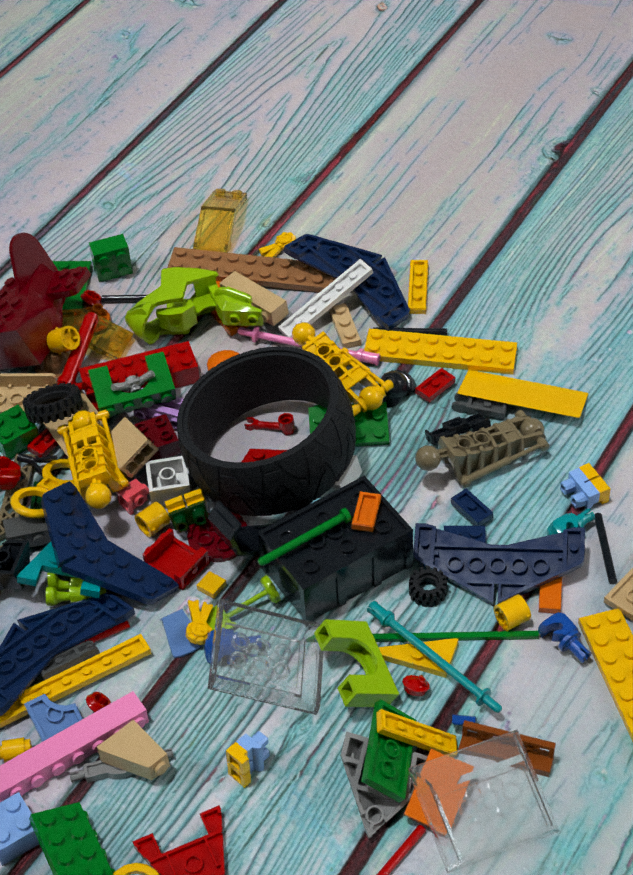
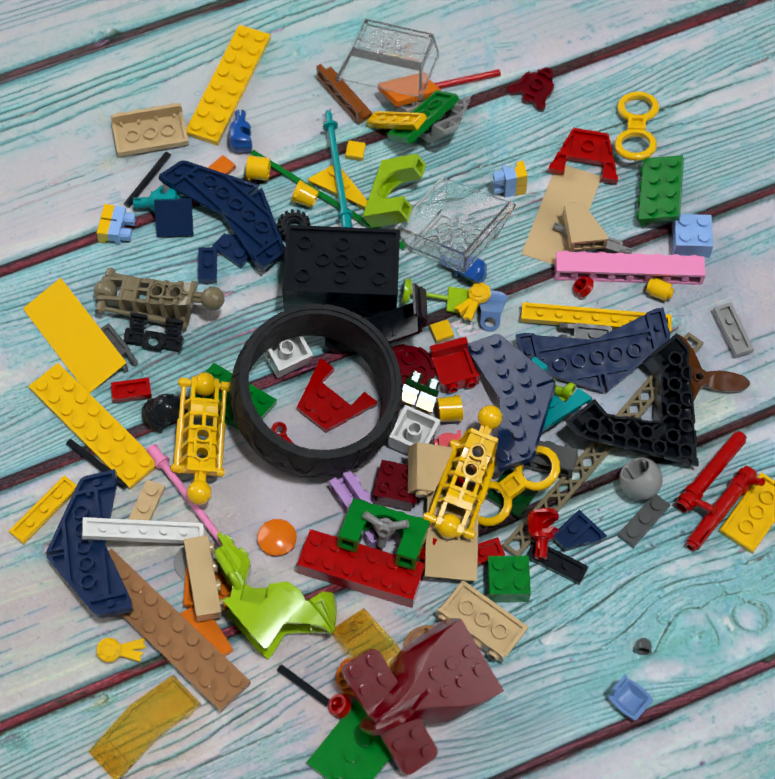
camera: 150 degrees left, 15 degrees up
(33, 461) = (508, 533): black plant -> none
(50, 717) = (621, 295): medium blue tile -> none
(52, 403) = (452, 579): black tyre -> none
(63, 339) = (412, 623): yellow piece -> none
(77, 355) = (429, 599): red cylinder -> none
(111, 257) = (290, 734): green brick -> none
(182, 790) = (562, 189): none -> tan sticker
(343, 516) = (368, 262): green bar -> none
(366, 511) = (308, 256): orange tile -> none
(415, 685) = (363, 165): red hat -> none
(439, 700) = (355, 150): none -> yellow tile
(444, 618) = (304, 195): none -> yellow piece
(459, 719) = (353, 125): blue tile -> none
(540, 519) = (174, 217): none -> dark blue tile

